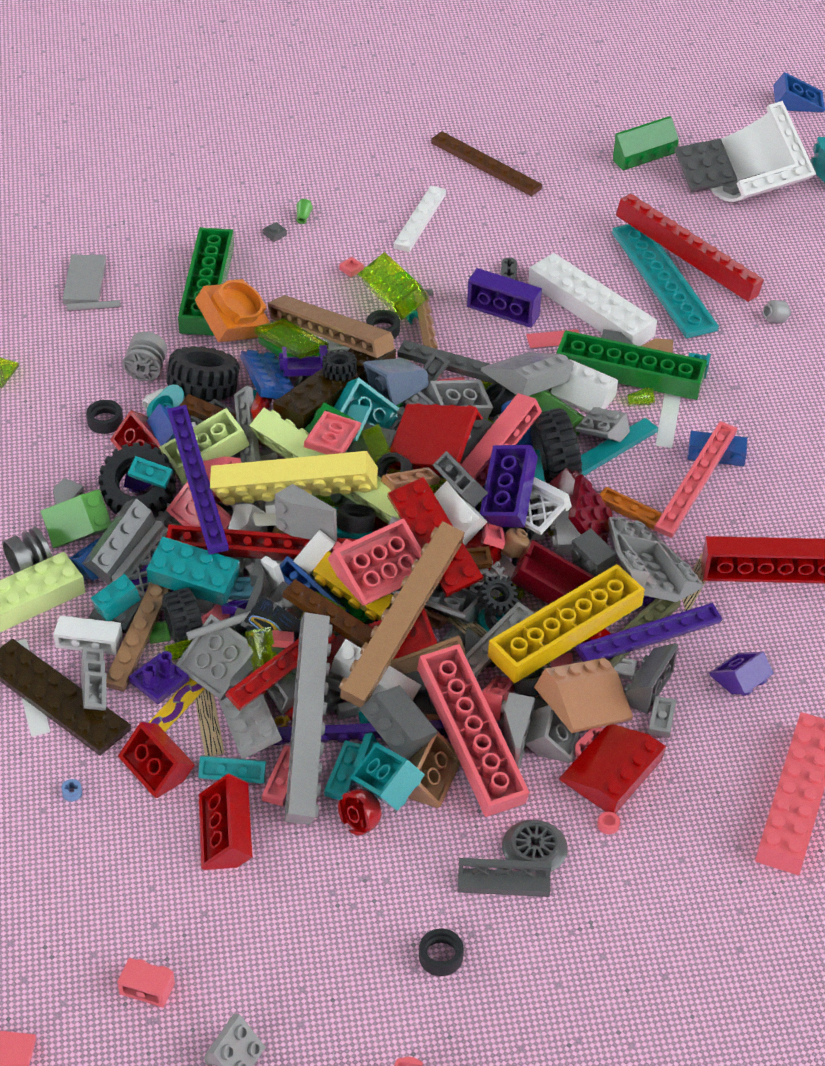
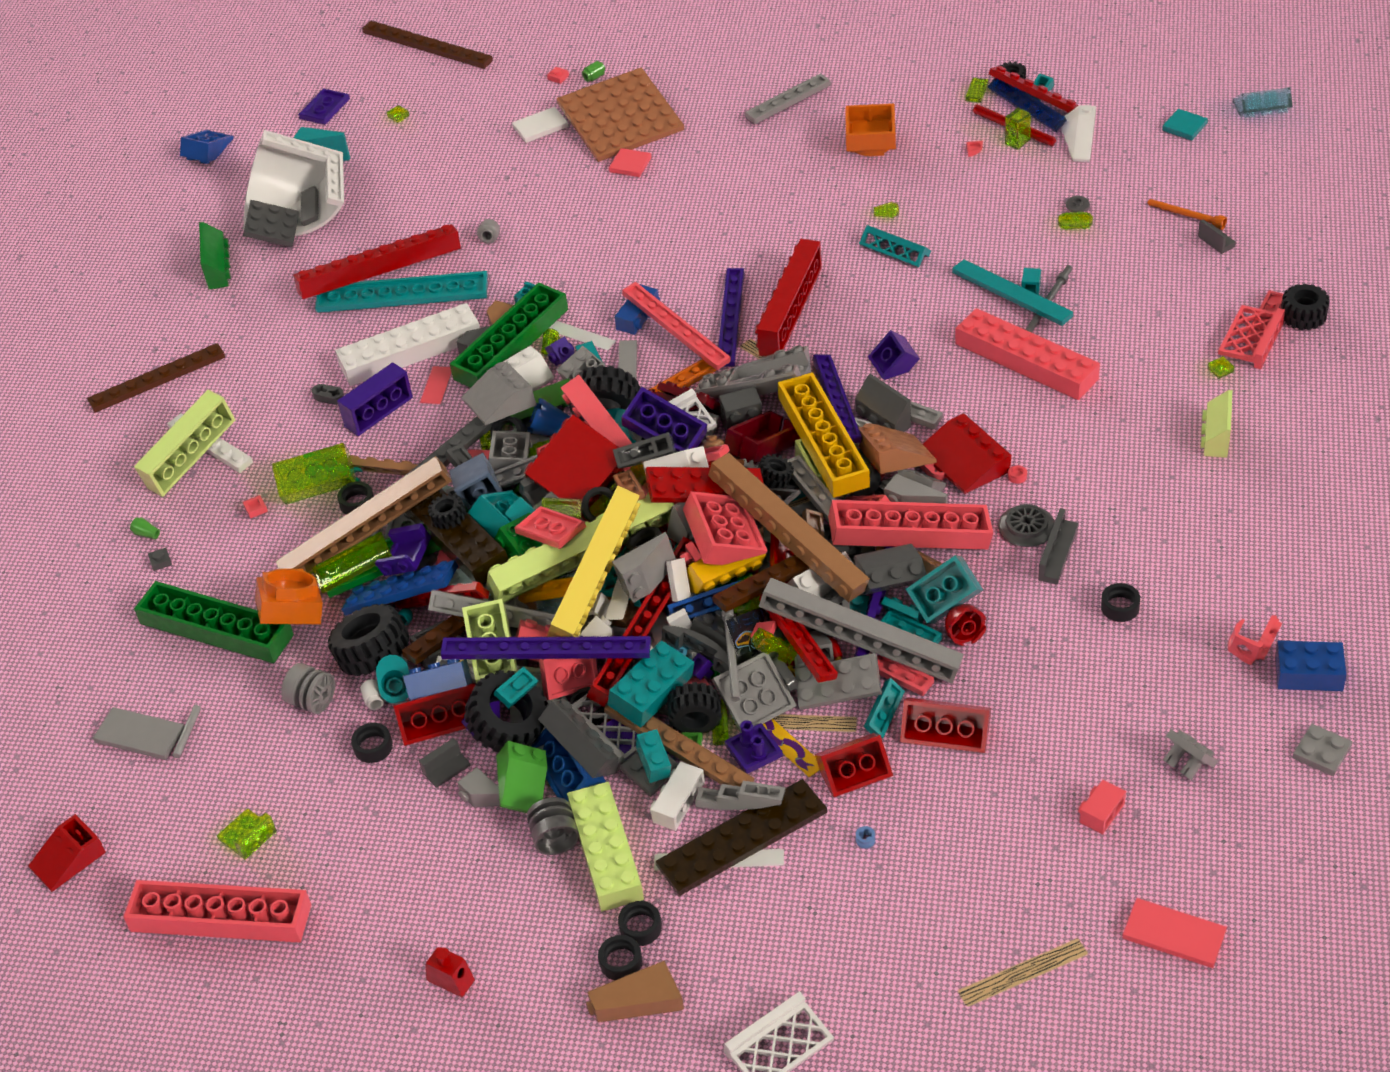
camera: 65 degrees left, 0 degrees up
(88, 467) = (443, 763): none -> dark grey panel
(397, 196) = (185, 443): none -> yellowish green brick
(626, 404) = (560, 351): none -> dark purple brick
(634, 464) = (628, 356): none -> light grey tile
(748, 524) = (731, 313): none -> dark purple tile
(755, 1006) = (1217, 425): none -> yellowish green slope

